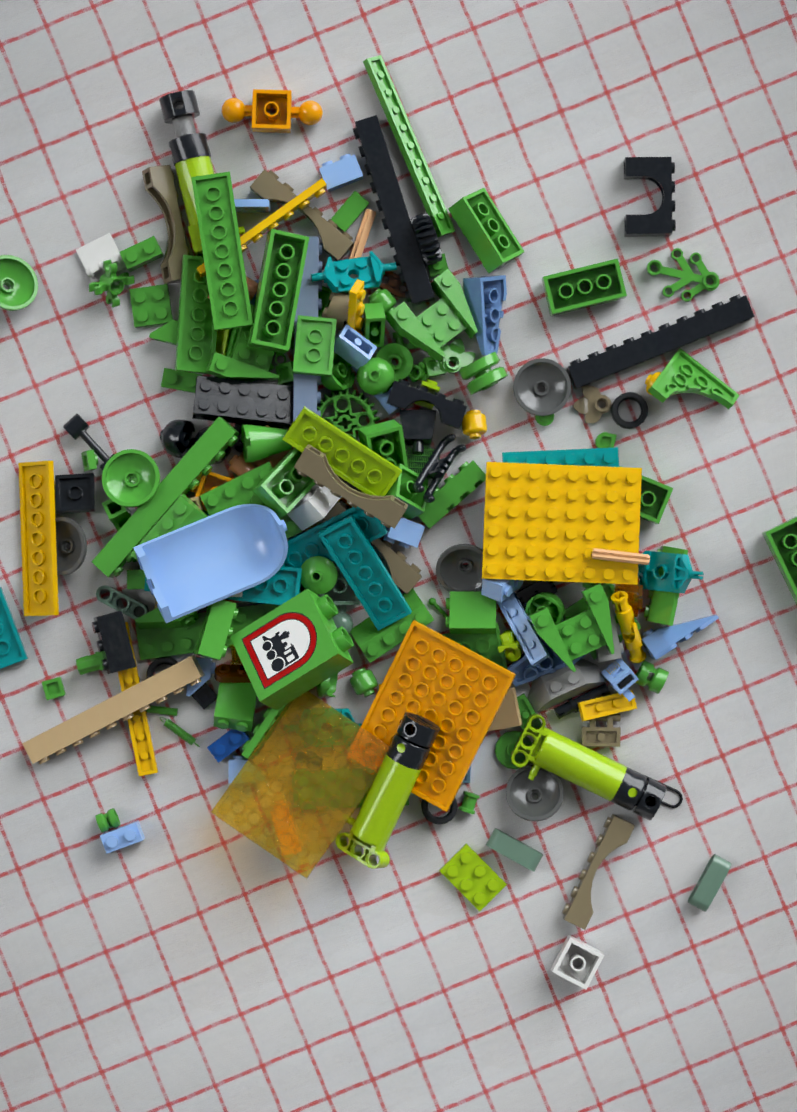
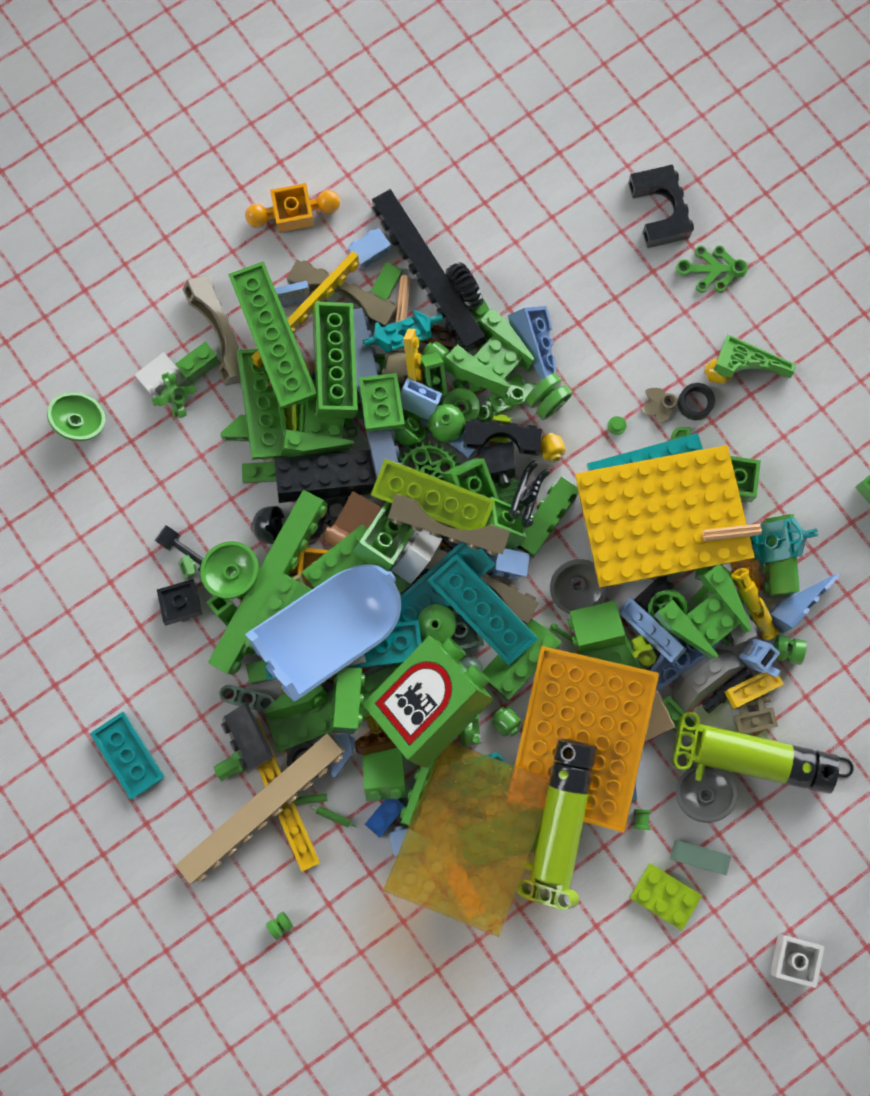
camera: 10 degrees left, 10 degrees down
(38, 538) = (152, 655): yellow plate -> none
(53, 688) = (197, 801): bright green plate -> none
(68, 533) = (177, 655): dark grey dish -> none
(122, 836) = (298, 939): light blue brick -> none
(151, 305) = (216, 409): bright green plate -> none
(189, 154) = (221, 259): piece -> none
(205, 696) = (350, 774): black tile -> none
(262, 442) = (352, 506): bright green cone -> none
(285, 373) = (360, 440): bright green plate -> none
(408, 145) = (425, 209): bright green plate -> none
(439, 820) = (614, 845): black tyre -> none
(486, 230) = (517, 269): bright green slope -> none
(499, 588) = (619, 594): light blue brick -> none
(505, 746) = (663, 753): bright green tile -> none
(546, 374) = (610, 386): dark grey dish -> none
(584, 287) = (623, 298): bright green brick -> none
(616, 834) = (783, 902): dark tan arch -> none
(660, 342) = (708, 332): black brick -> none

